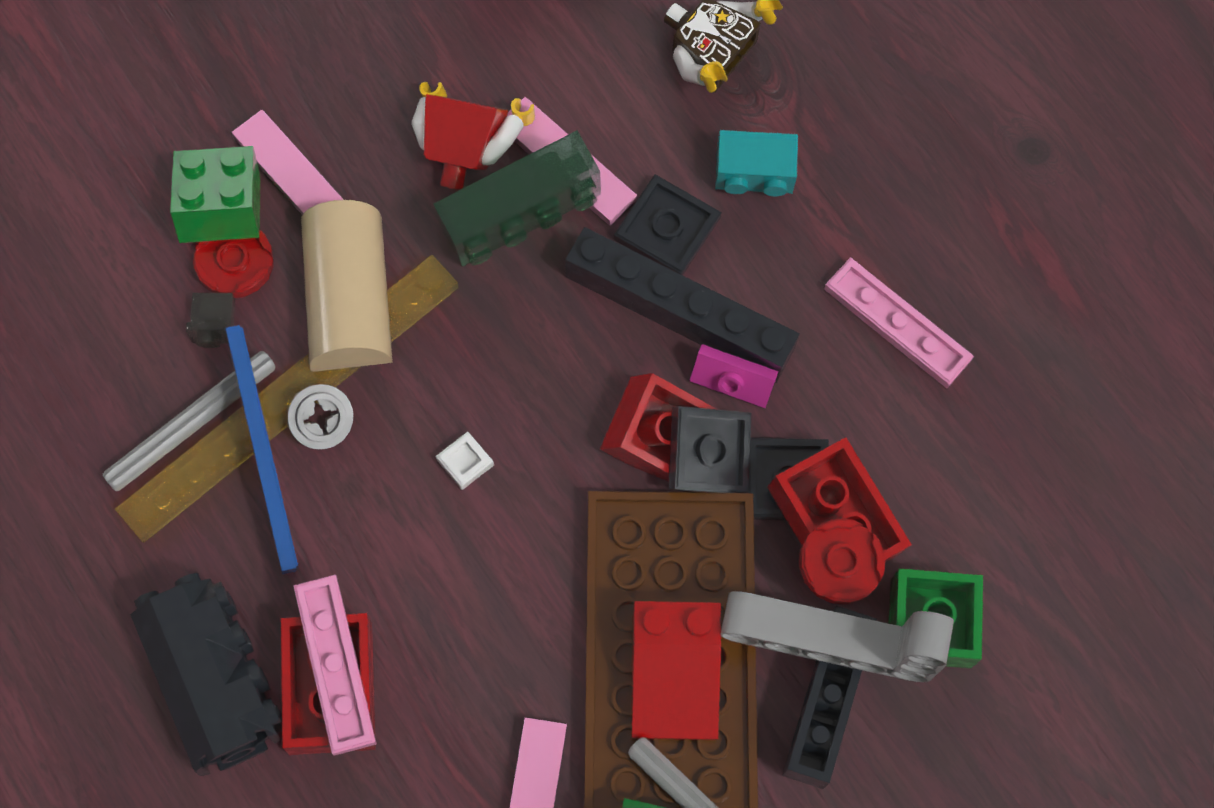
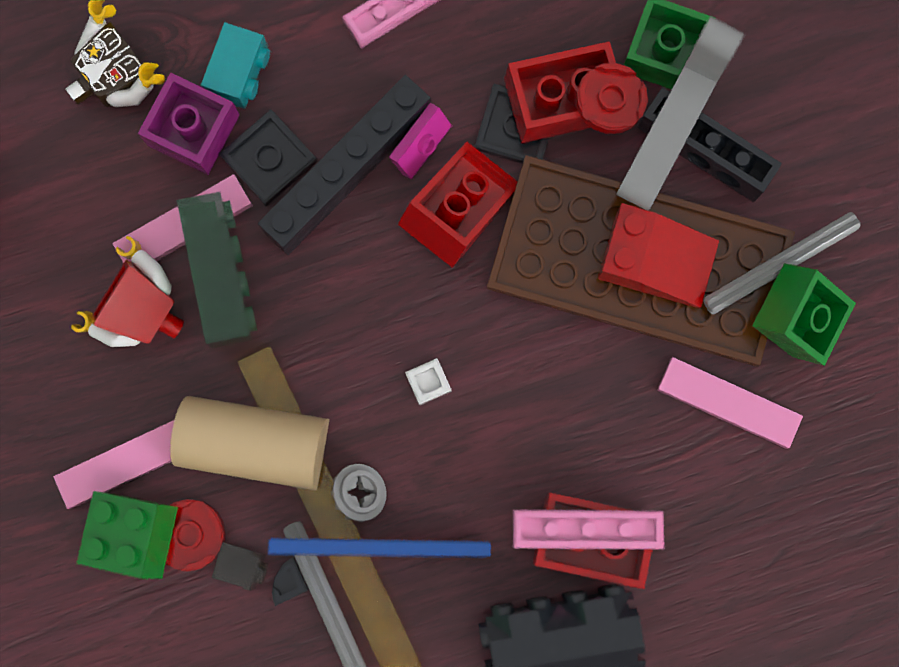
camera: 70 degrees left, 10 degrees up
(205, 372) = (288, 582): none -> black tile
(674, 132) = (189, 123): none -> magenta brick
(709, 450) = (481, 178): black tile -> none

